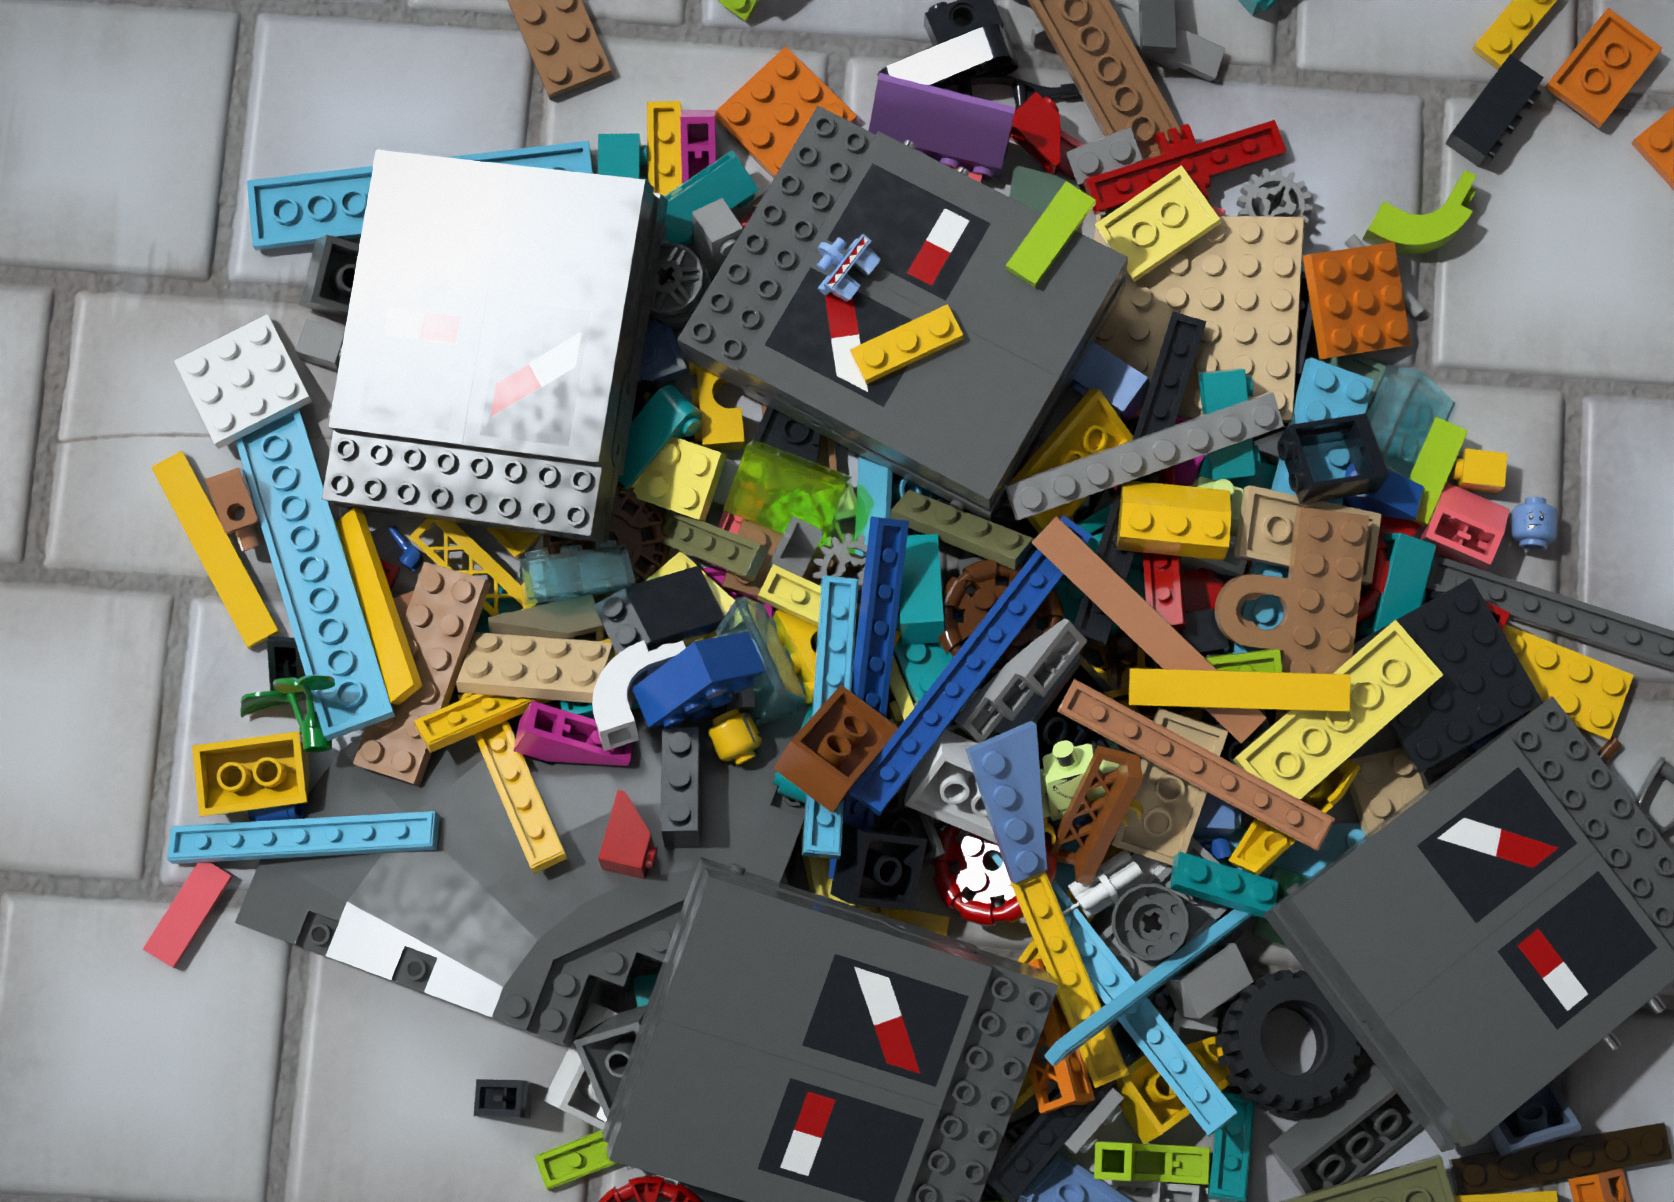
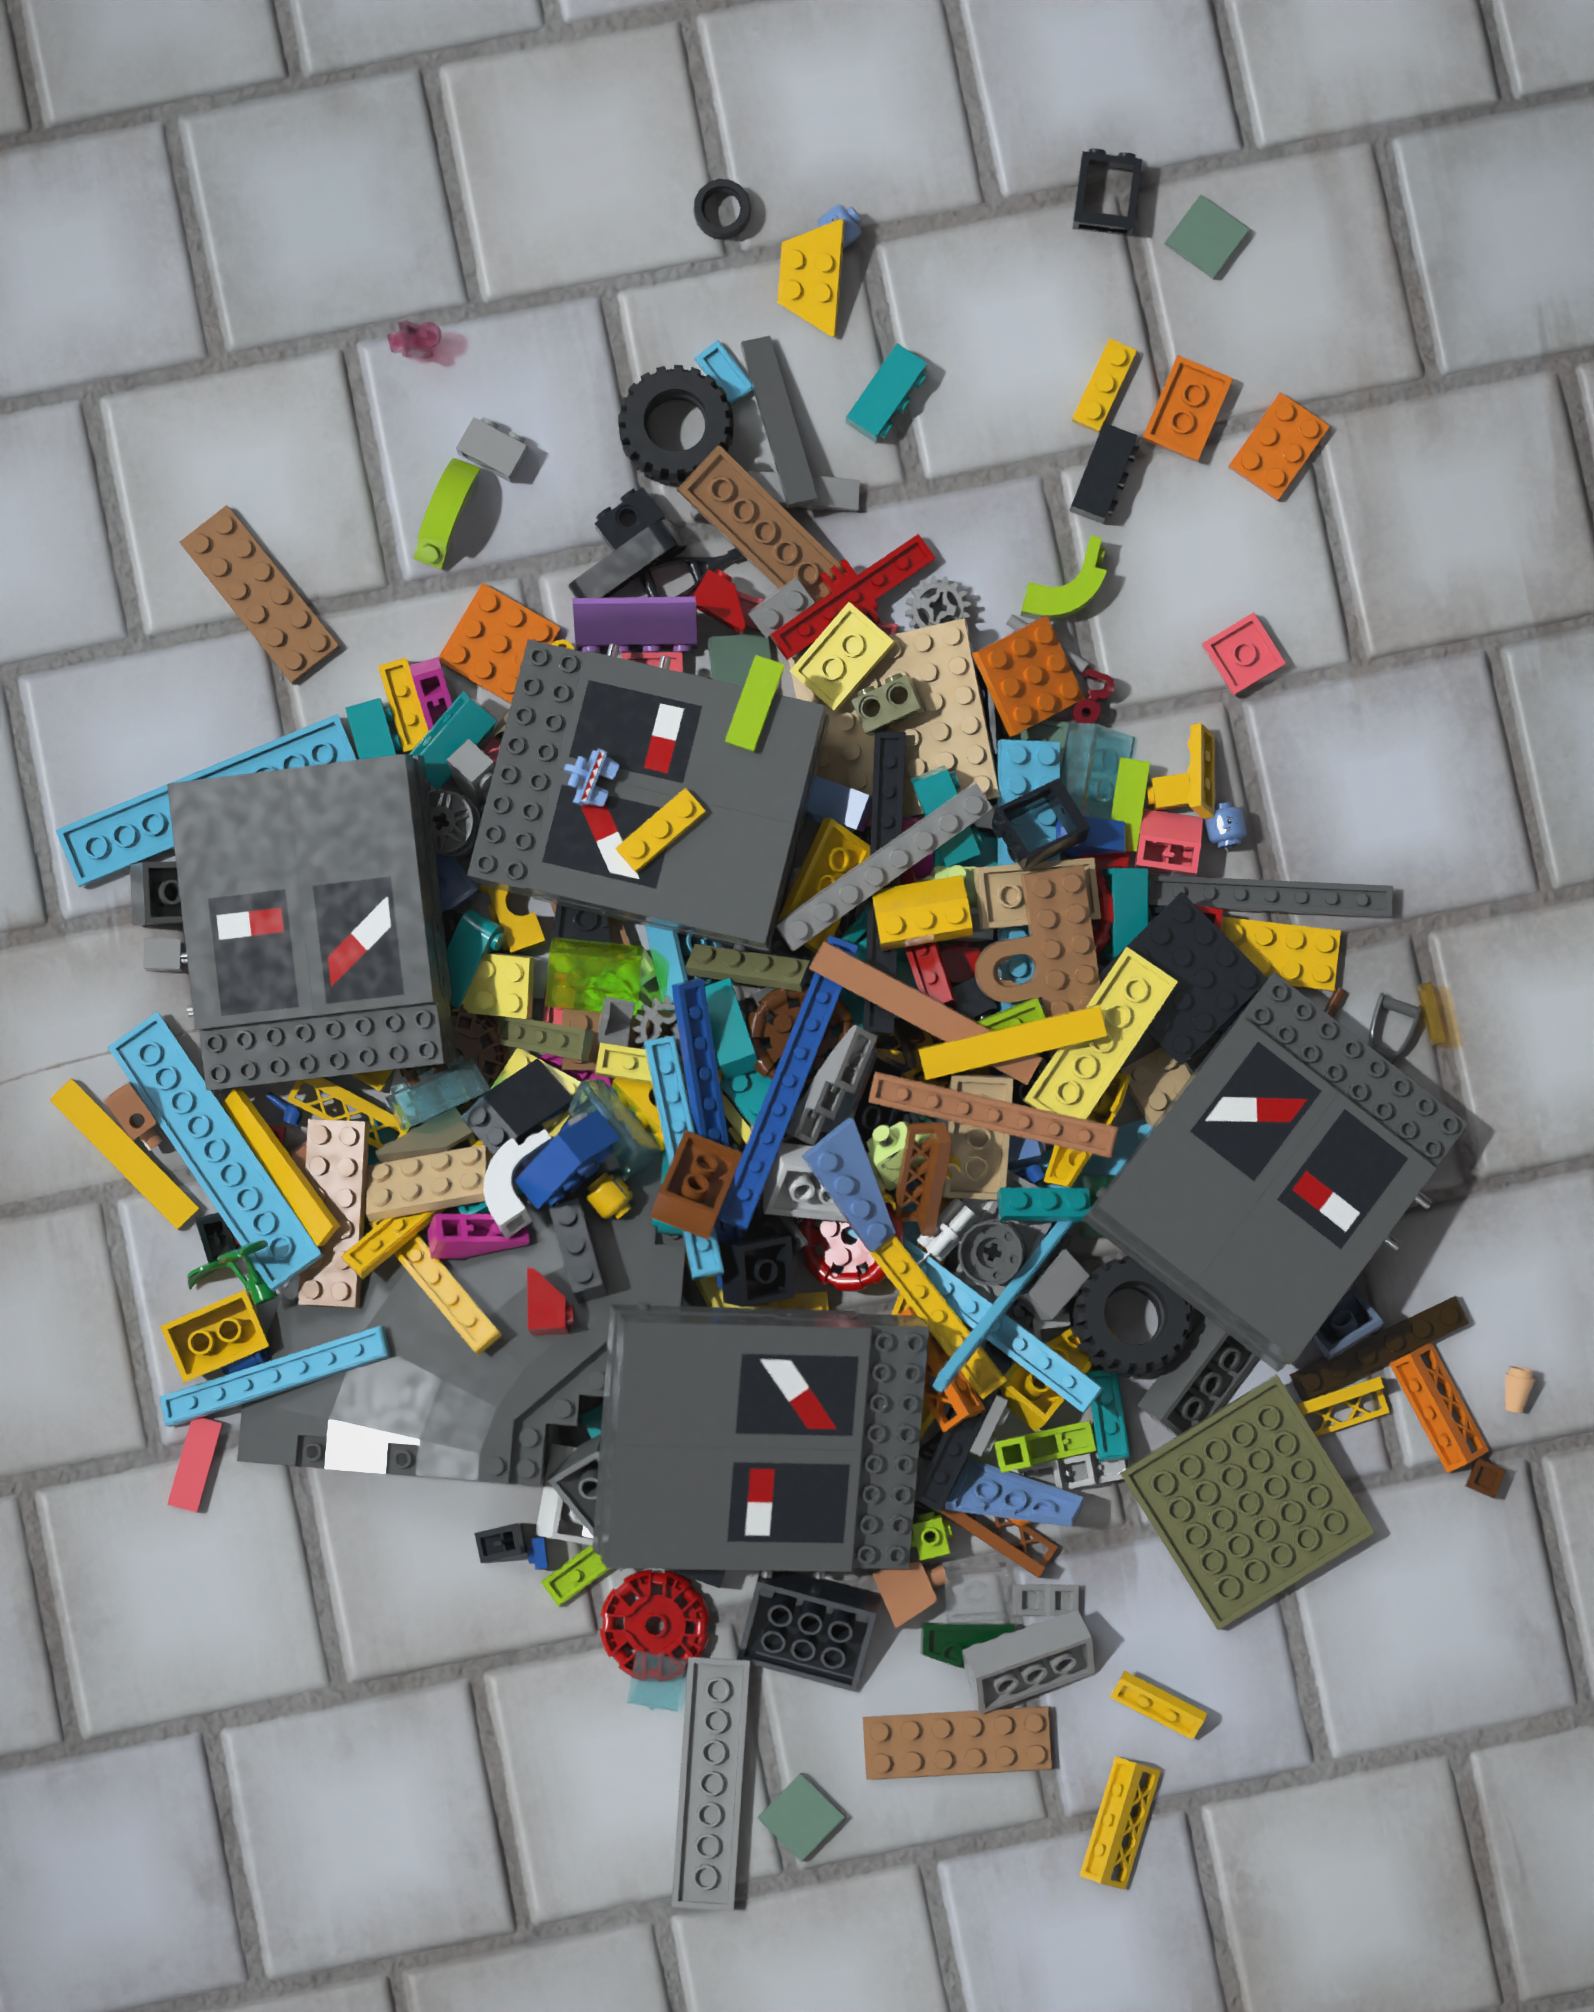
camera: 15 degrees left, 5 degrees up
(242, 381) = (105, 1004): white plate -> none
(541, 1122) = (538, 1553): none -> blue plate
(1195, 296) = (890, 712): none -> olive brick
(1415, 355) = (1089, 709): none -> dark red leg
(1523, 456) = (1202, 771): none -> yellow plate
(1599, 344) = (1243, 654): none -> coral plate

